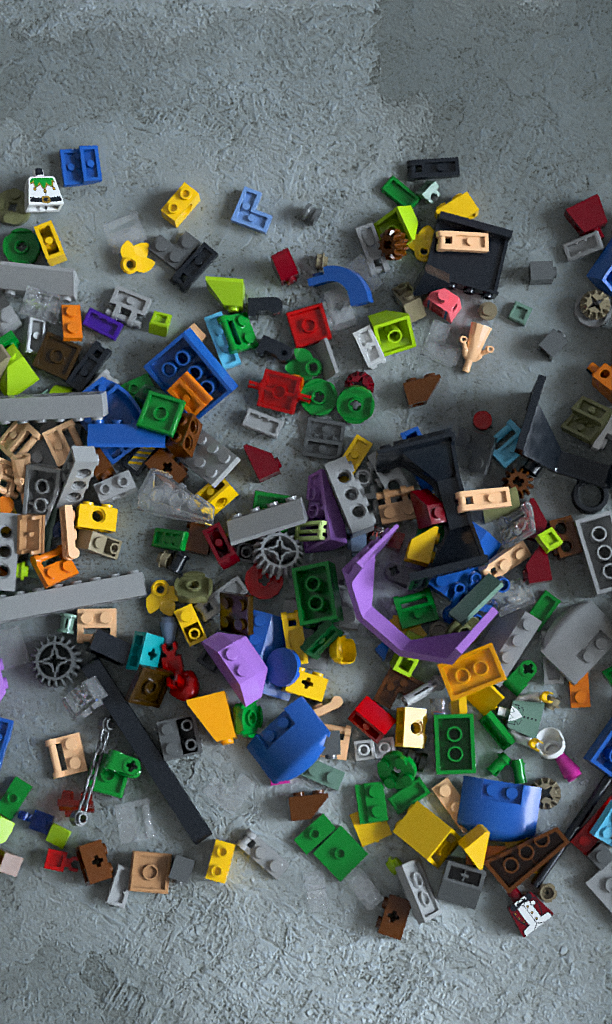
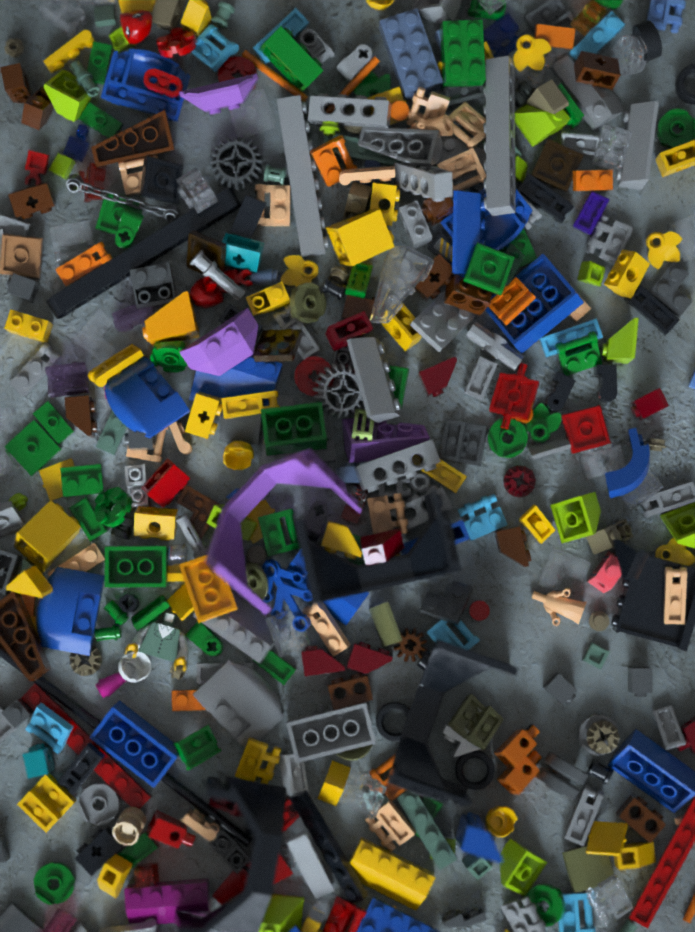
camera: 85 degrees right, 5 degrees up
(30, 533) = (366, 135): medium nougat hinge -> none
(35, 758) = (137, 141): none -> reddish brown wedge
(73, 734) = (160, 180): none -> black tile
(130, 537) = (360, 237): none -> yellow slope
(157, 808) = (83, 264): none -> orange plate
(161, 289) = (626, 273): none -> yellow brick
(163, 679) = (210, 269): none -> light grey pin
(208, 760) = (129, 317): none -> clear purple bracket
(231, 410) = (494, 346): none -> light grey piece
(257, 773) = (115, 365): none -> yellow plate
(272, 820) = (67, 379): none -> clear purple bracket
(283, 667) = (219, 391): blue tile -> none
(321, 639) = (246, 431): dark green plate -> none
(362, 412) = (509, 476): green plate -> none
(369, 347) = (560, 492): white hinge -> none
(393, 244) = (672, 520): reddish brown gear -> none
(399, 368) = (537, 524): none -> yellow slope
(399, 416) = (485, 522): none -> medium azure plate
(476, 599) = (284, 594): sand green tile -> none
(483, 499) = (387, 605): light nougat plate -> none
(484, 756) = (125, 607): none -> black bush
(518, 530) = (357, 642): clear plate -> none
(549, 540) = (345, 674): lime plate -> none

